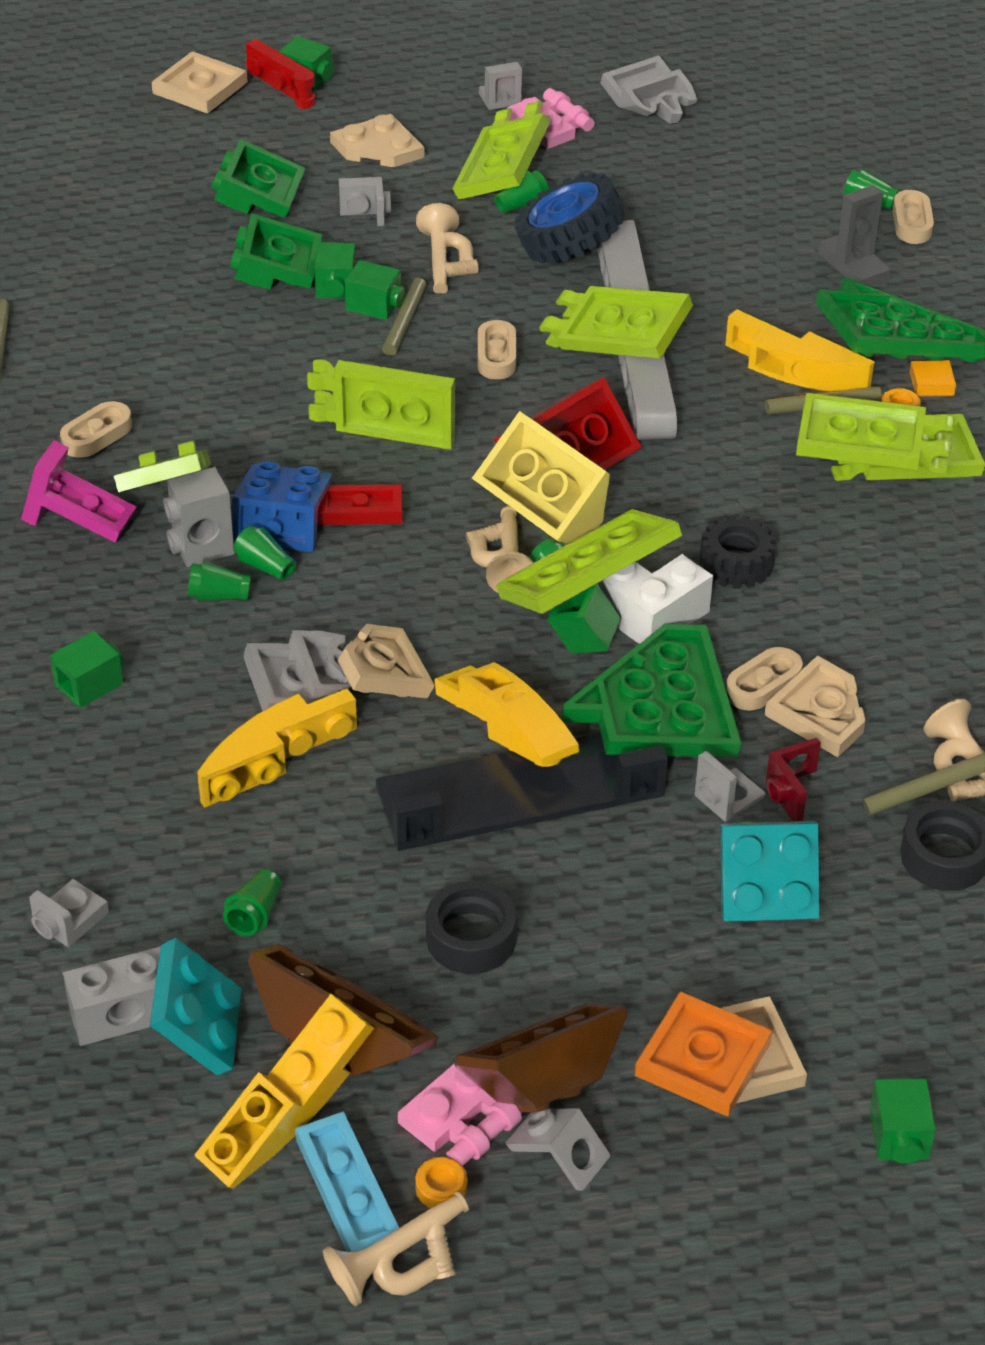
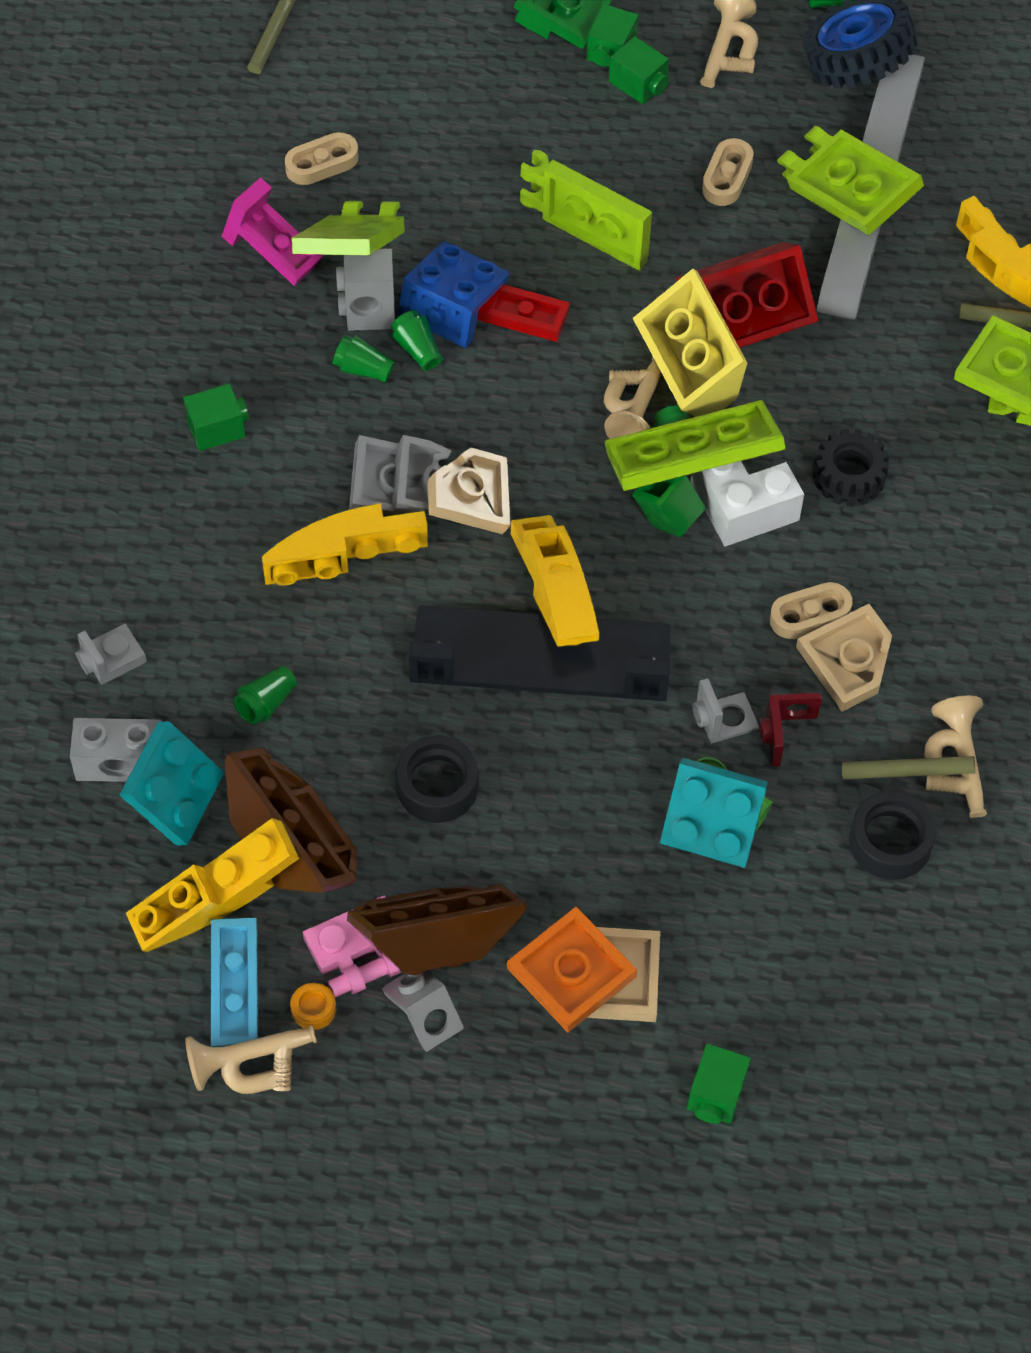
camera: 20 degrees right, 15 degrees up
(404, 316) = (659, 106): olive bar -> none
(661, 696) = (703, 604): green wing -> none

